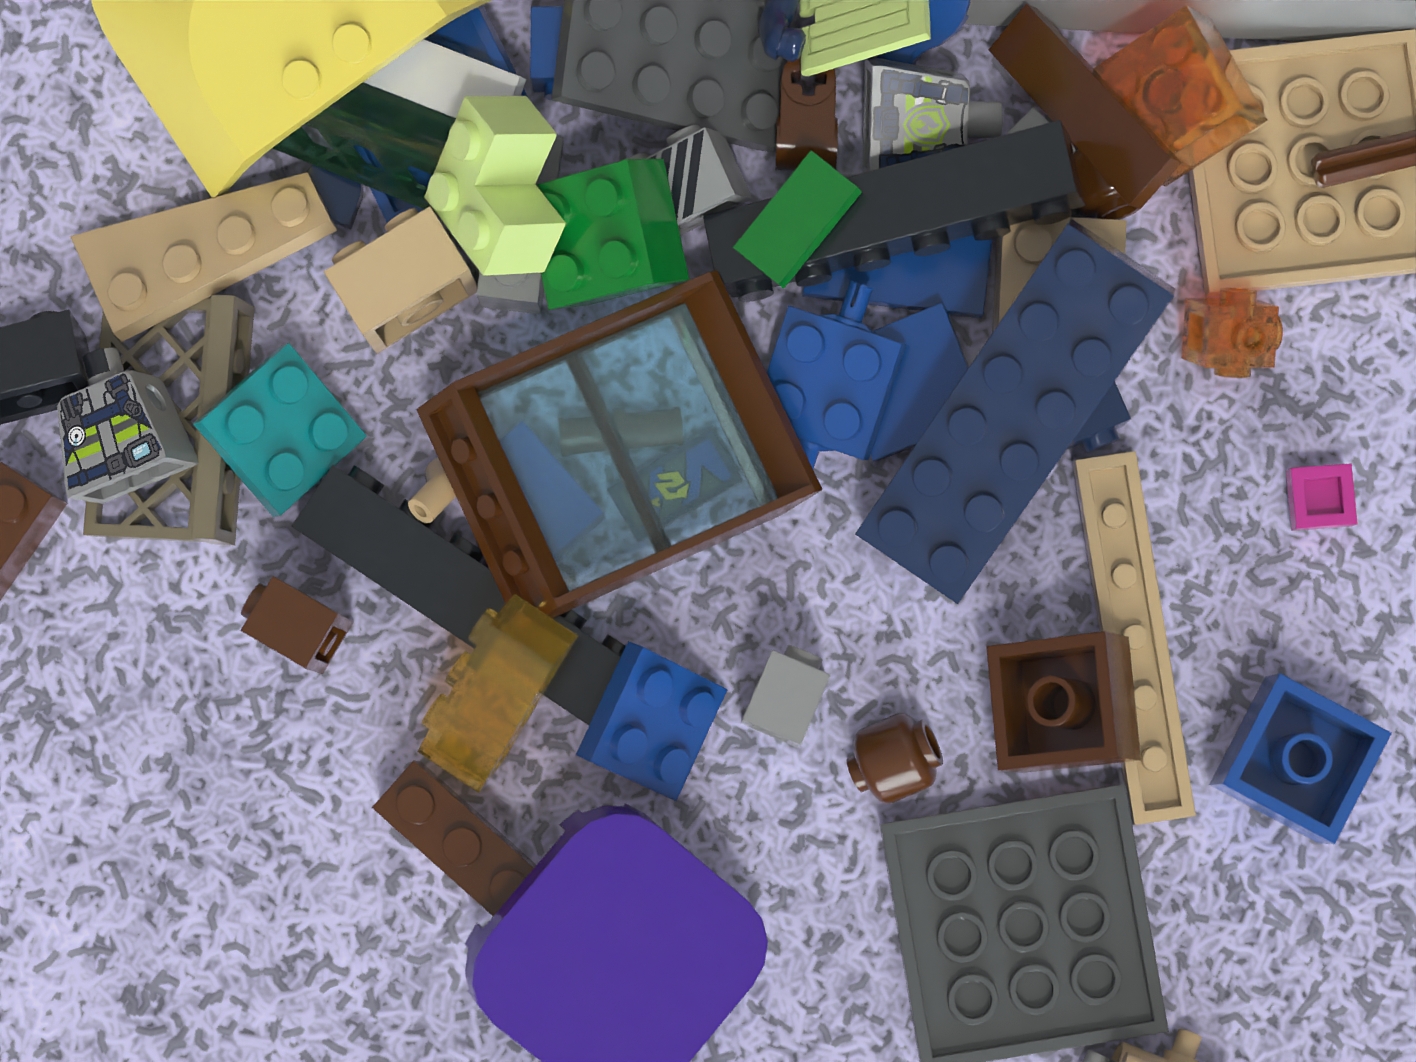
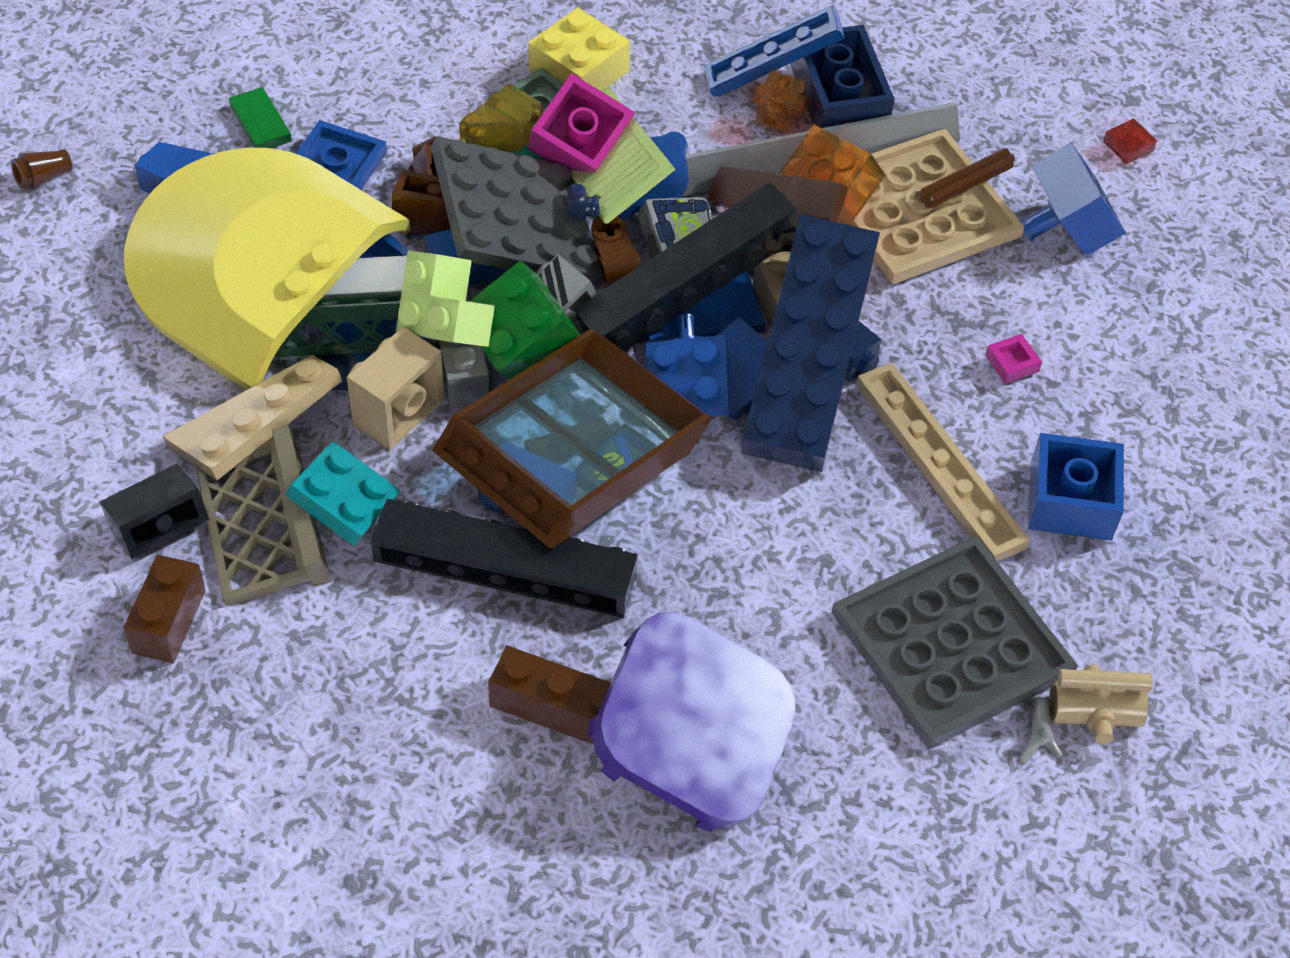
camera: 25 degrees left, 30 degrees down
(119, 432) = (235, 520): torso -> none
(294, 624) = (394, 592): reddish brown brick -> none
(433, 495) = (462, 497): tan arm -> none
(494, 691) = (546, 586): clear yellow brick -> none
(651, 721) = (654, 577): blue plate -> none
(787, 695) = (739, 541): light grey brick -> none
(797, 219) = (634, 283): green tile -> none
(895, 758) = (824, 565): reddish brown head -> none
(1063, 702) = (916, 493): reddish brown brick -> none
(1231, 332) = (917, 287): clear orange brick -> none

